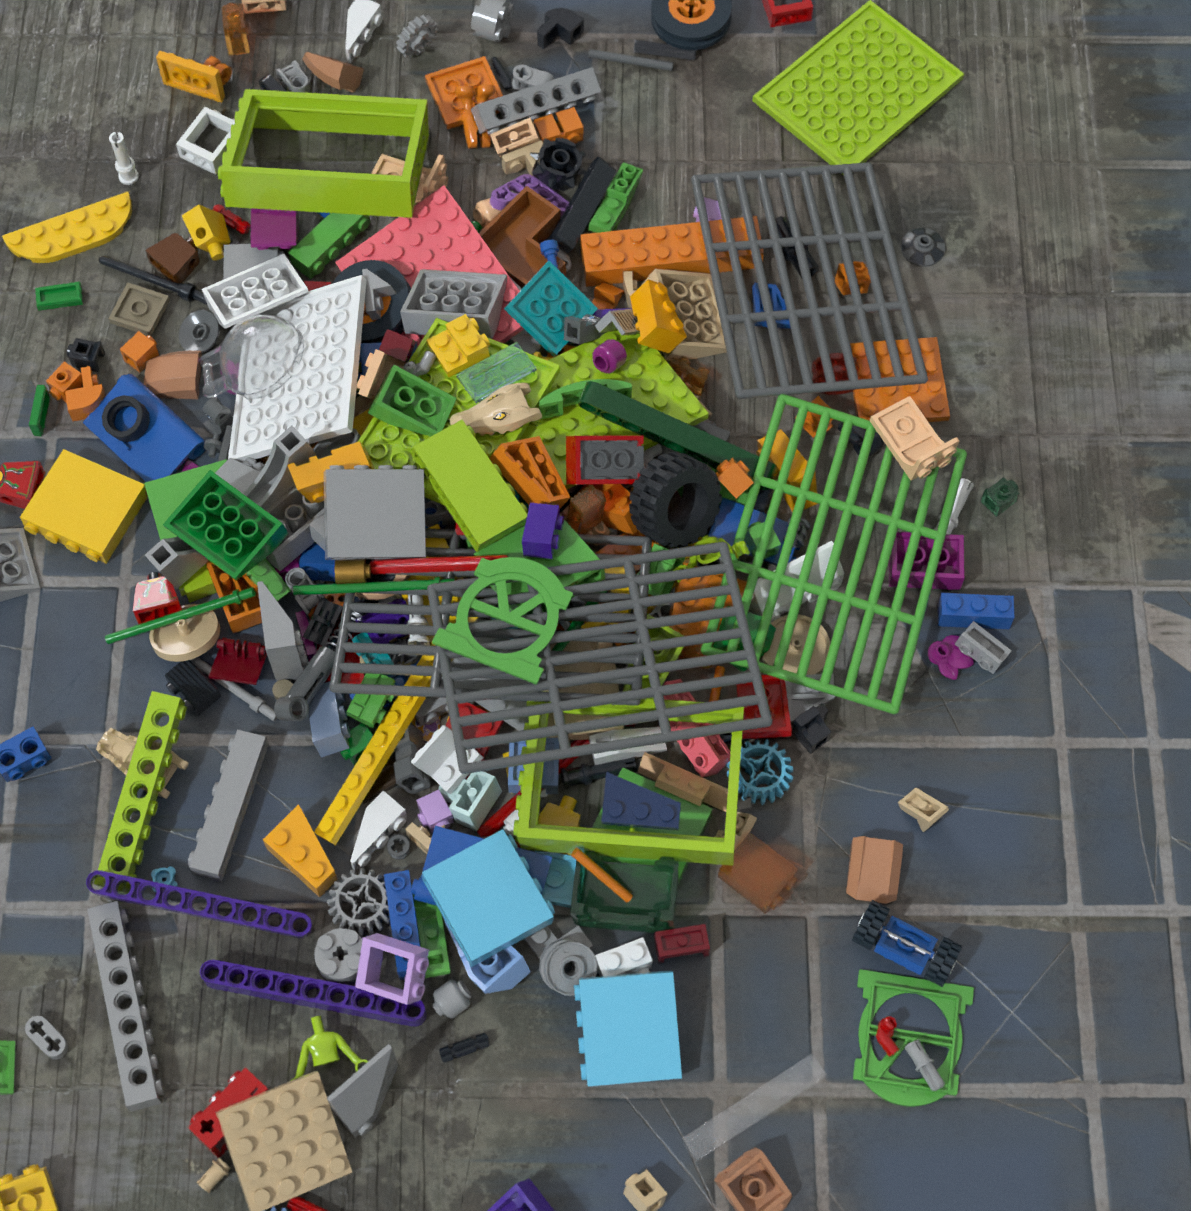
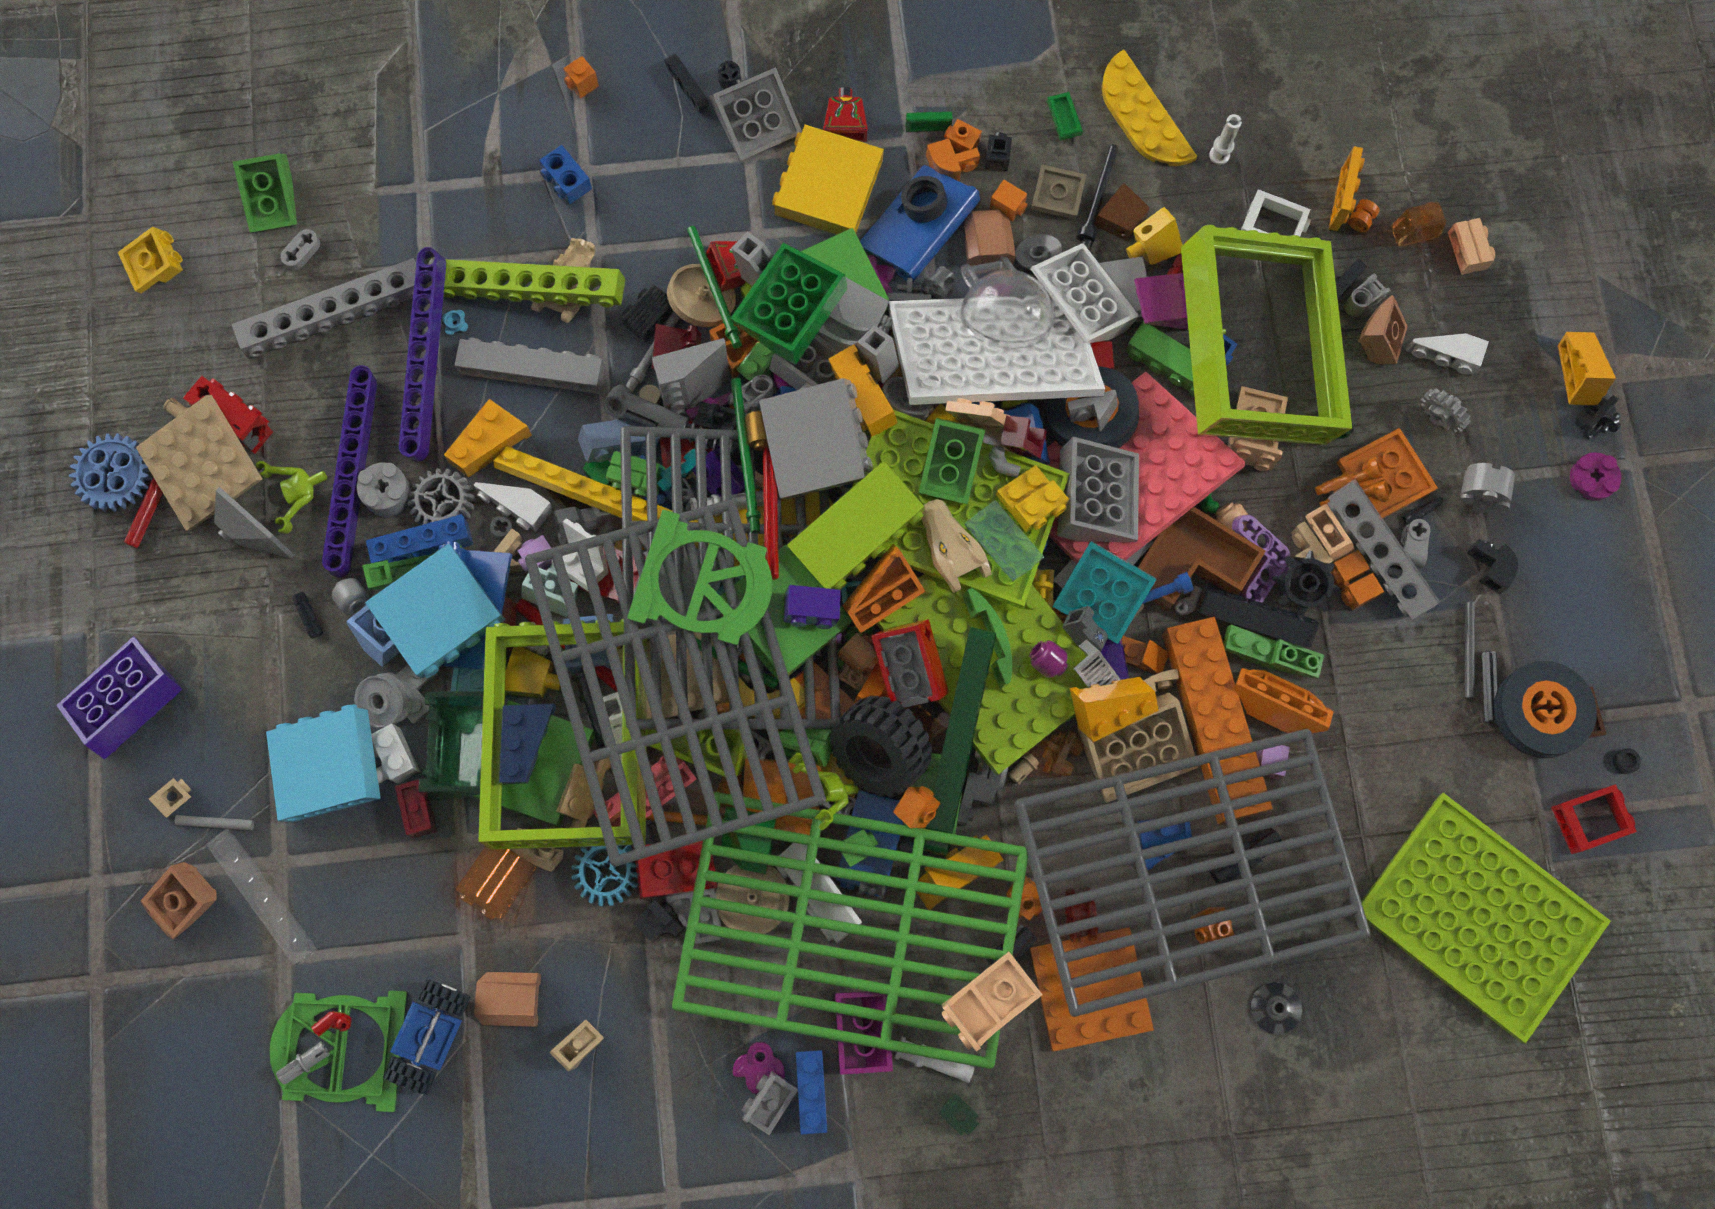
camera: 80 degrees right, 10 degrees up
(370, 968) = (381, 522): lavender window -> none
(602, 875) = (468, 719): orange bar -> none
(664, 196) = (1281, 702): none -> orange wedge
(673, 1154) = (214, 822): none -> light grey bar

